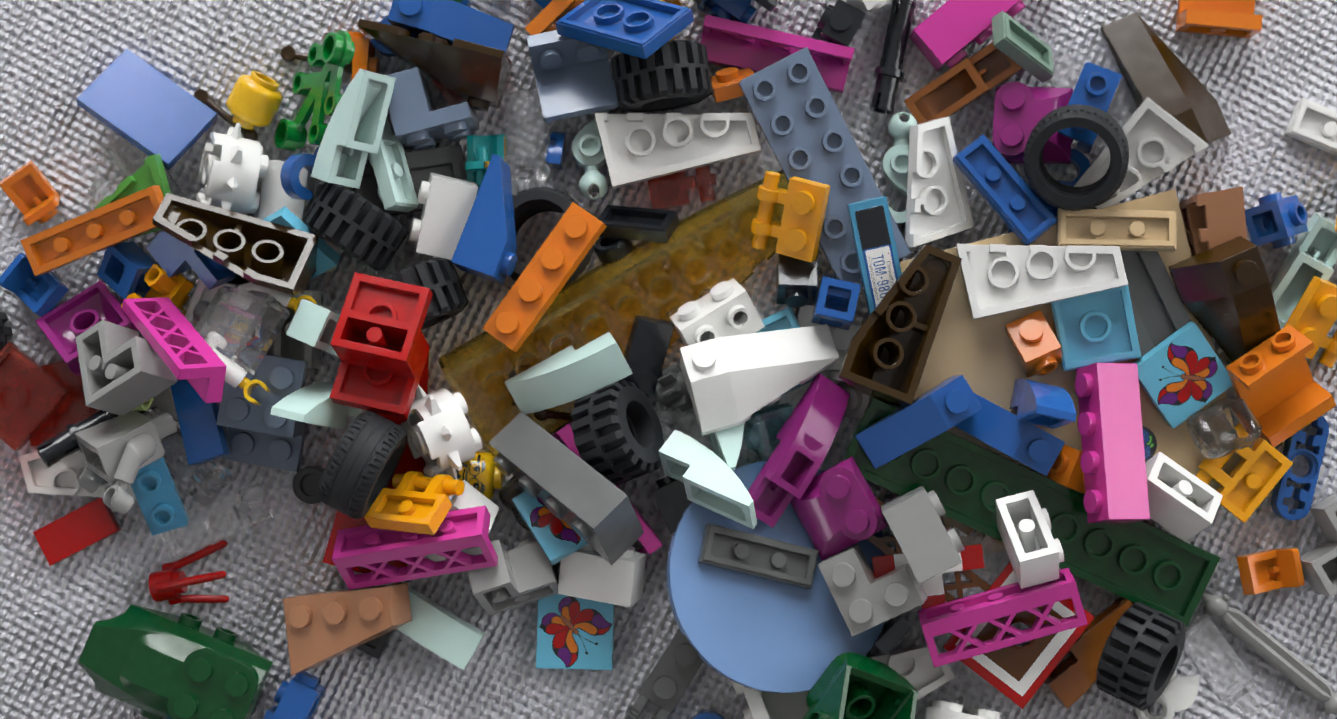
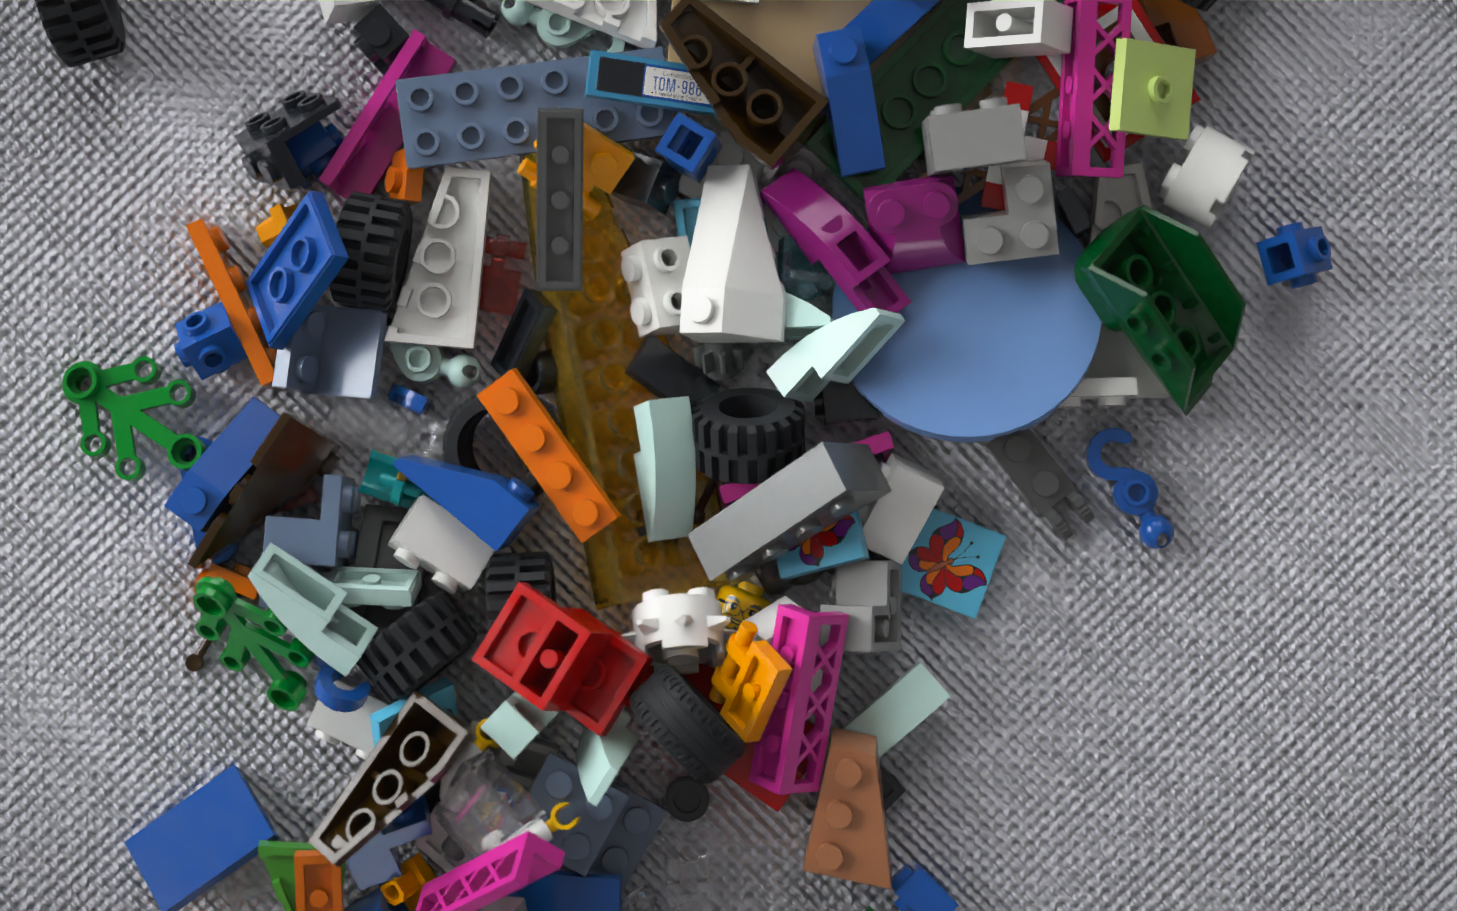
camera: 75 degrees left, 0 degrees up
(204, 97) = (270, 737): dark brown hinge -> none
(232, 171) = (307, 766): white brick -> none
(254, 100) = (235, 716): yellow head -> none
(755, 212) = (559, 198): none -> dark grey tile
(758, 556) = (936, 328): dark grey tile -> none
(1015, 666) = (1152, 89): none -> yellowish green plate

